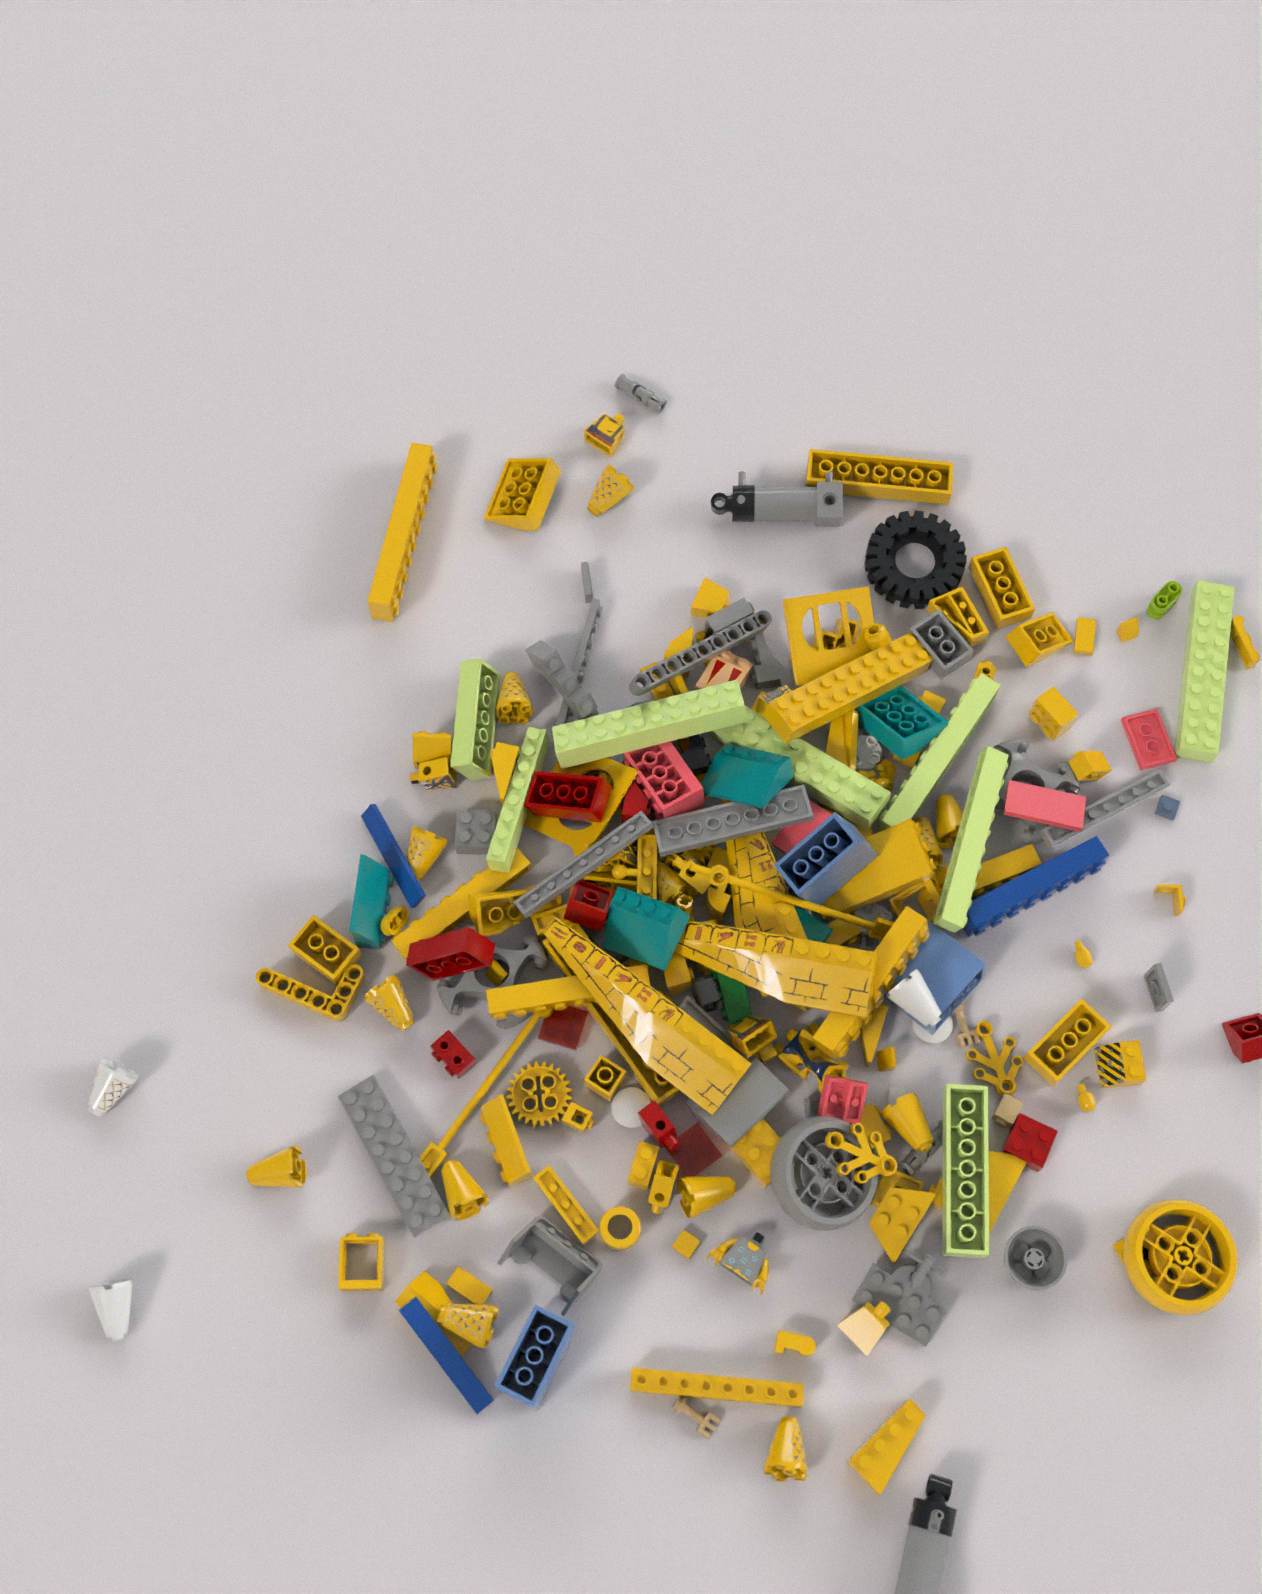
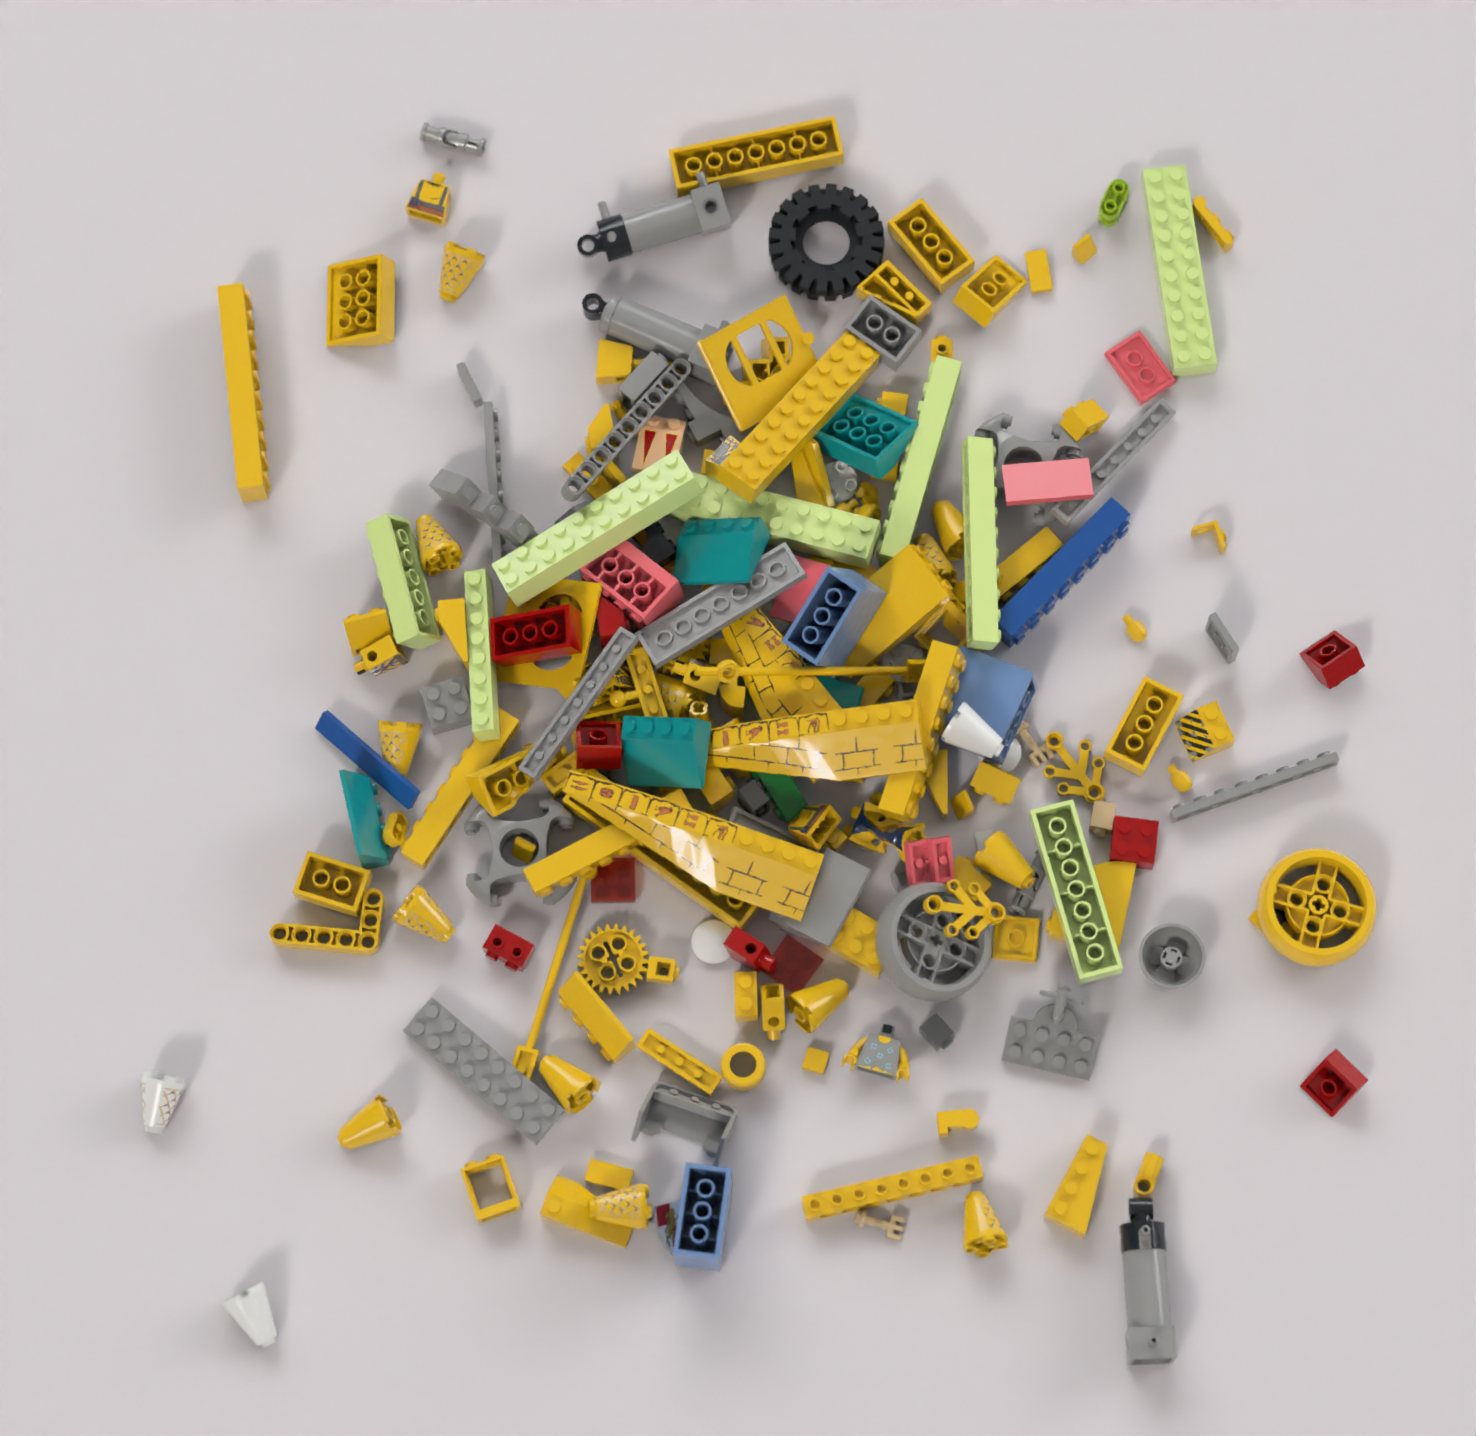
camera: 15 degrees left, 5 degrees up
(446, 1355) = (610, 1247): blue tile -> none
(450, 954) = (471, 844): red brick -> none
(502, 1347) = (666, 1223): none -> shield
(605, 1078) = (676, 920): yellow head -> none
(749, 583) = (653, 331): none -> light grey piece
(802, 1256) = (937, 1032): none -> dark grey brick
(866, 1325) = (1023, 1079): yellow torso -> none
(877, 636) = (812, 348): yellow head -> none
(899, 1217) = (1024, 961): yellow wing -> none
(922, 1049) = (995, 782): none -> yellow brick
(954, 1454) = (1148, 1174): none -> yellow piece
(1053, 713) = (1028, 374): yellow brick -> none
(1151, 1427) = (1334, 1083): none -> red slope
(1159, 1126) = (1262, 783): none -> light grey plate
(1167, 807) = (1180, 438): sand blue plate -> none

